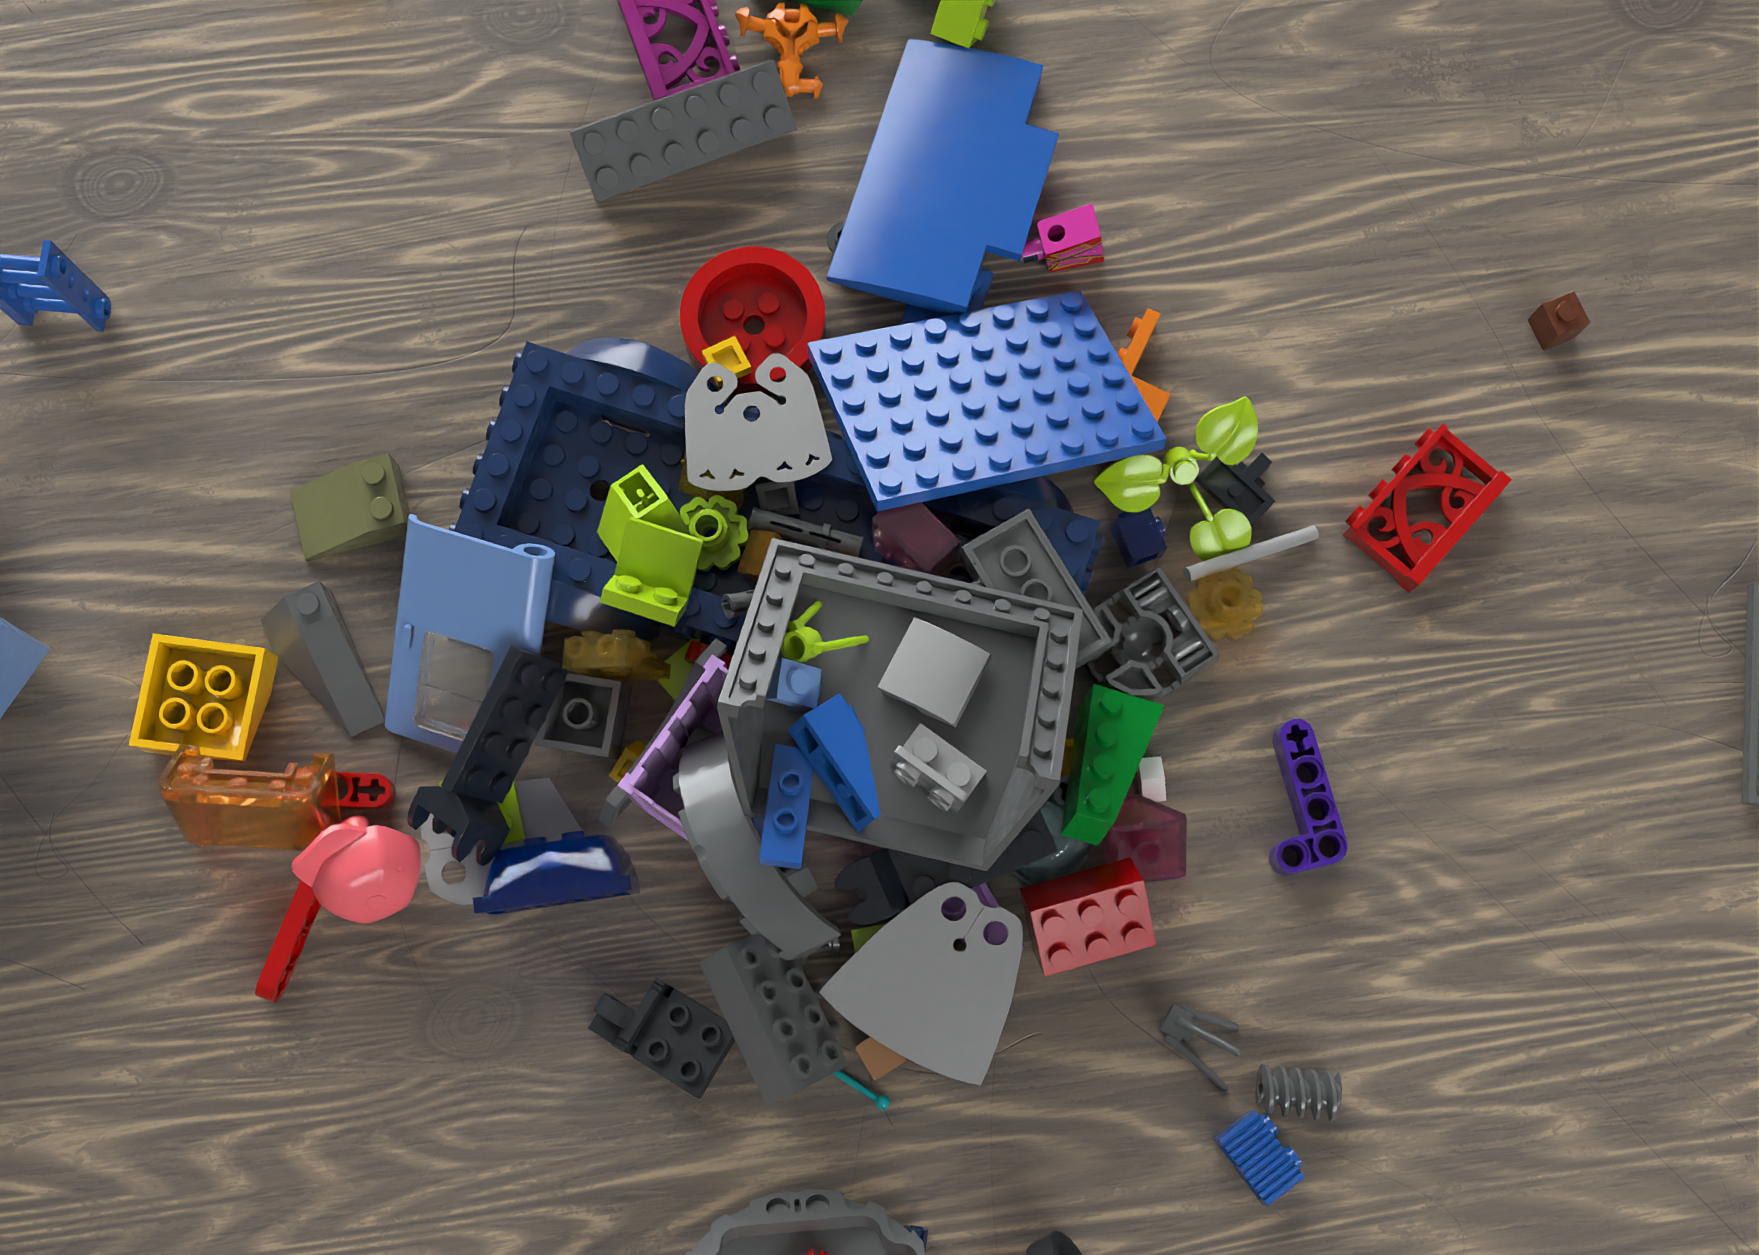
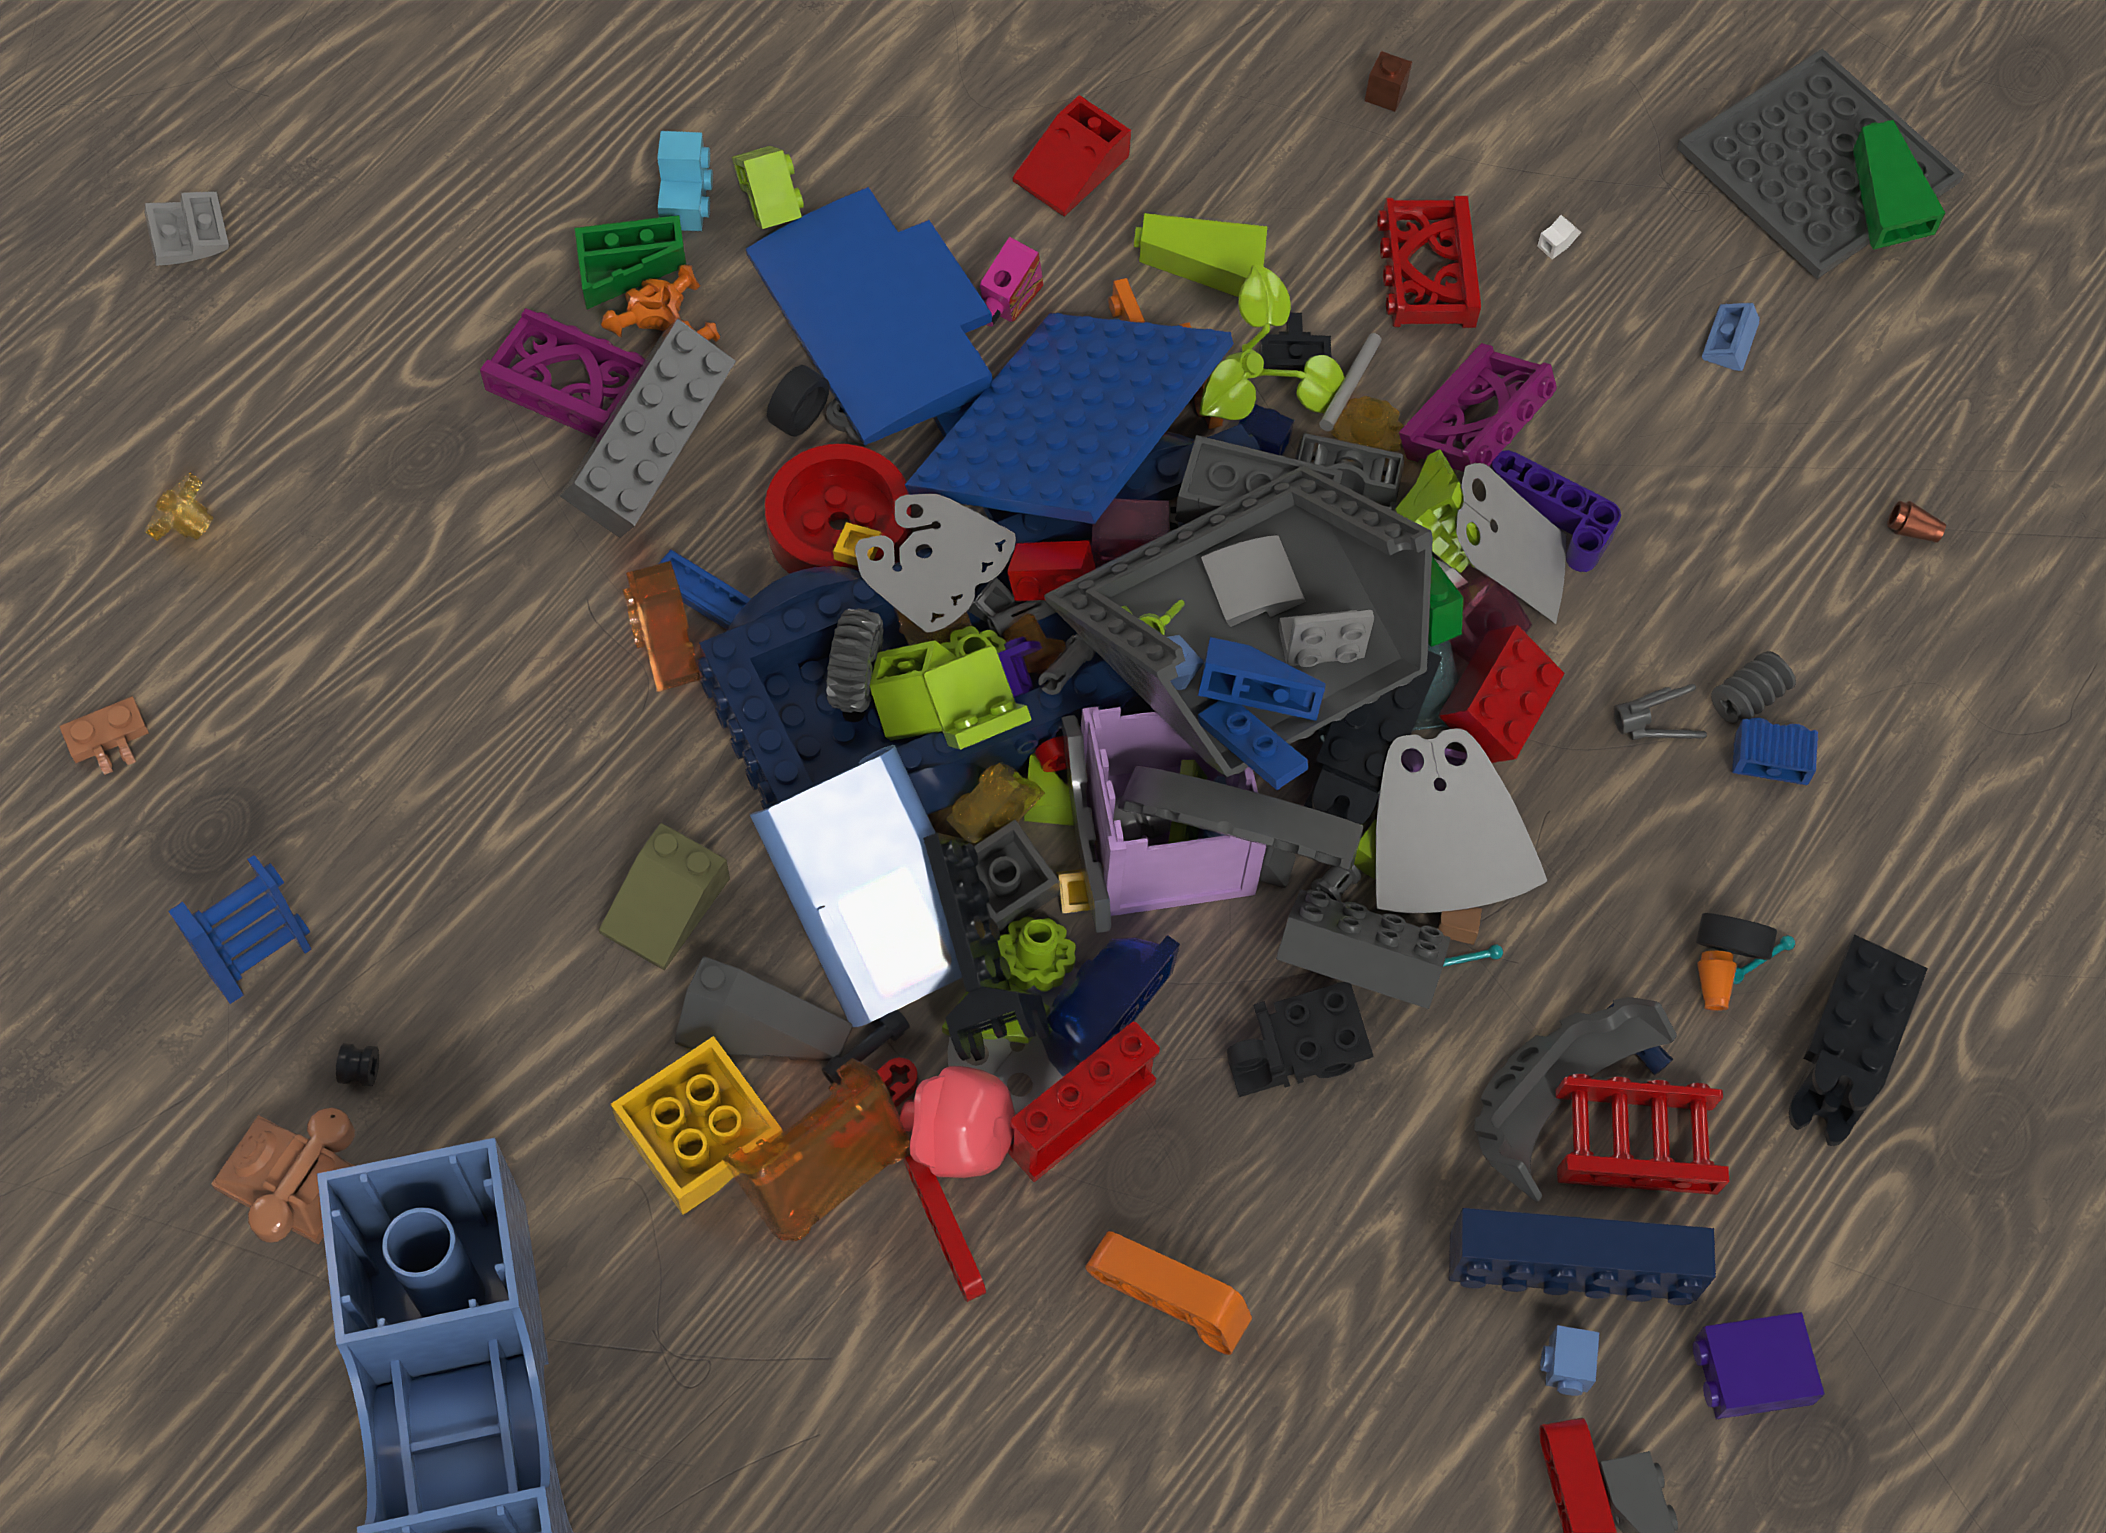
camera: 45 degrees left, 15 degrees down
(44, 446) = (357, 1064): none -> black wheel
(121, 45) = (103, 731): none -> nougat hinge
(343, 747) = (891, 1026): none -> black bar
(386, 1126) = (1173, 1288): none -> orange beam
(459, 935) = (1083, 1101): none -> red fence
(533, 297) = (661, 625): none -> clear orange wedge
(549, 808) = (1037, 953): none -> lime plant
(603, 291) = (706, 592): none -> blue plate
(618, 452) = (853, 659): none -> dark grey gear
(723, 569) = (1014, 664): none -> dark purple bracket
(812, 201) = (798, 400): none -> black tyre
(829, 513) = (1047, 566): none -> red brick
(1191, 735) = (1435, 505): none -> lime slope
(1230, 172) = (1074, 156): none -> red slope
(1233, 821) = (1525, 551): none -> light grey piece
(1254, 344) = (1201, 249): none -> lime slope
(1306, 699) = (1472, 384): none -> magenta fence
(1558, 577) = (1558, 237): none -> white piece
(1587, 1082) = (1914, 522): none -> copper cone
(1613, 787) = (1732, 335): none -> medium blue slope

